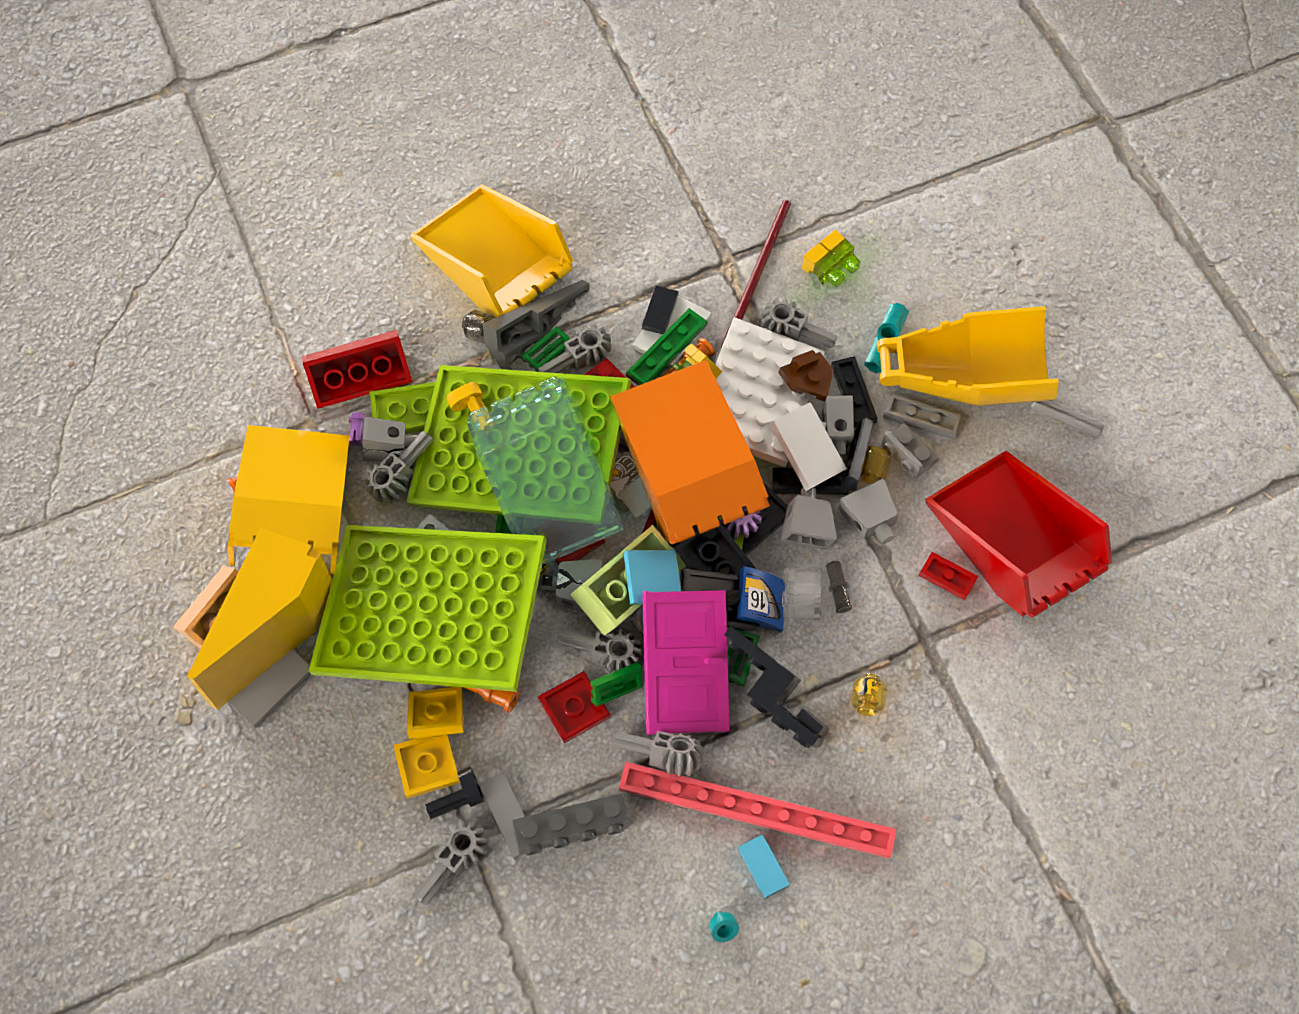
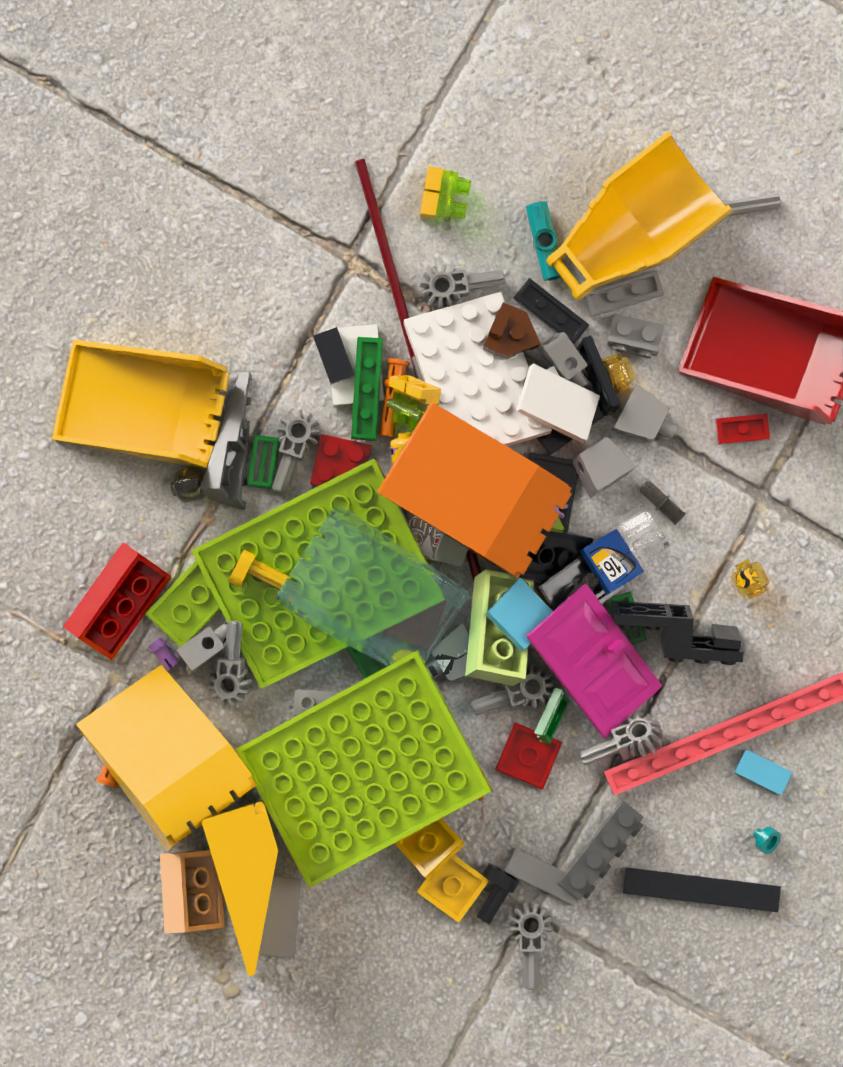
camera: 40 degrees left, 20 degrees up
(634, 929) = (701, 889): none -> black tile

